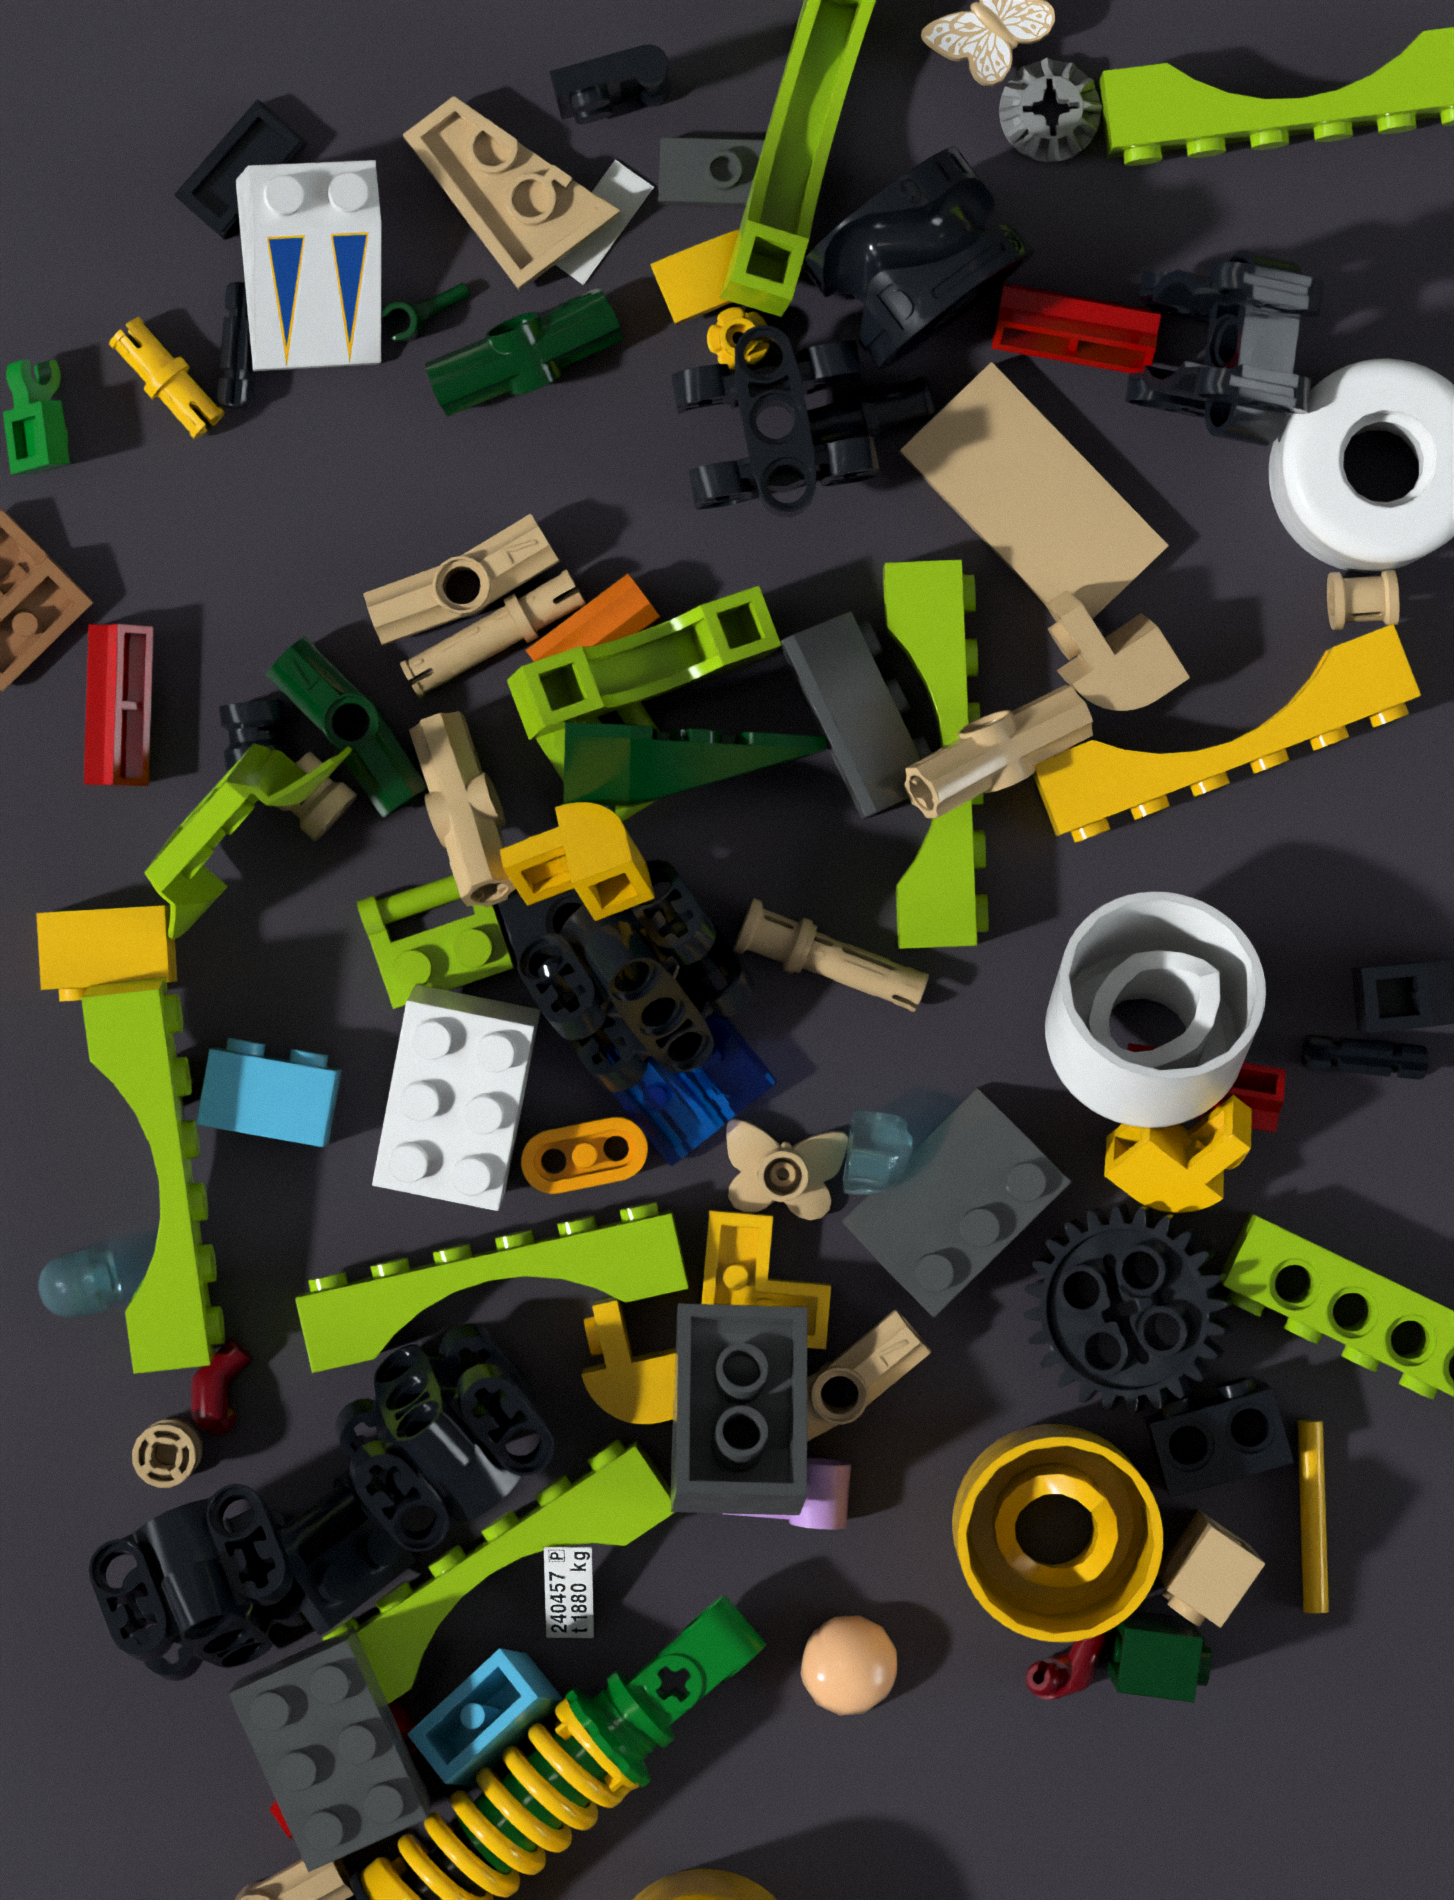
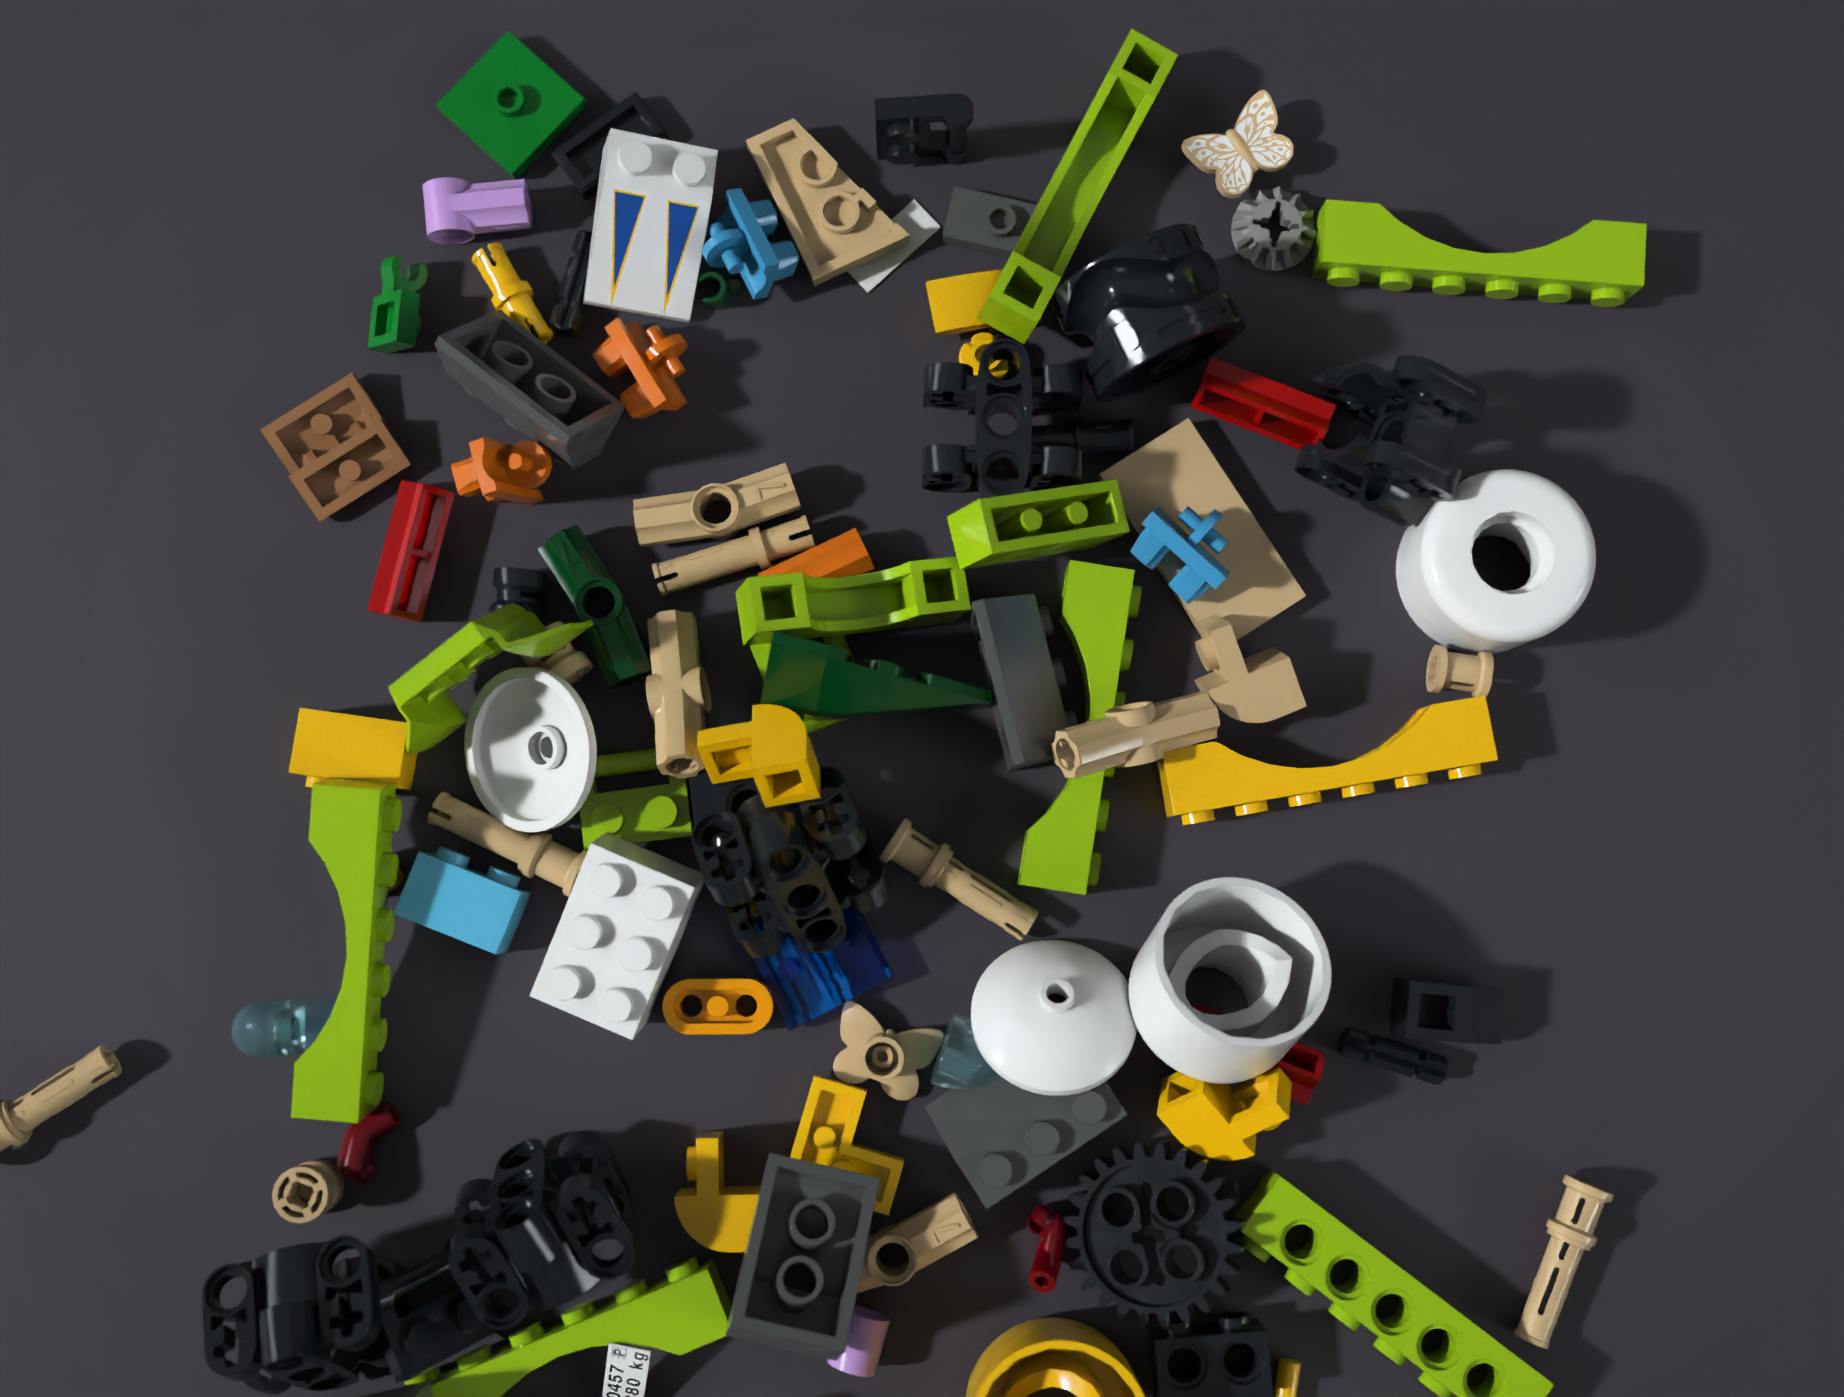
camera: 10 degrees right, 5 degrees down
(84, 286) = (462, 209): none -> lavender piece
(113, 144) = (511, 105): none -> green plate
(209, 592) = (503, 471): none -> orange hips
(219, 486) = (530, 387): none -> dark grey slope
(286, 913) = (530, 749): none -> white dish
(336, 1024) = (533, 852): none -> tan pin
(347, 424) = (652, 362): none -> orange hips
(428, 266) = (742, 245): none -> dark azure hips
(524, 352) = (807, 332): dark green piece -> none
(624, 1258) = (731, 1102): lime arch -> none
(839, 530) = (1037, 523): none -> lime brick
(971, 1120) = (1046, 1043): none -> white dish
(1014, 1350) = (1049, 1248): none -> dark red arm
(1037, 538) = (1165, 535): none -> dark azure hips

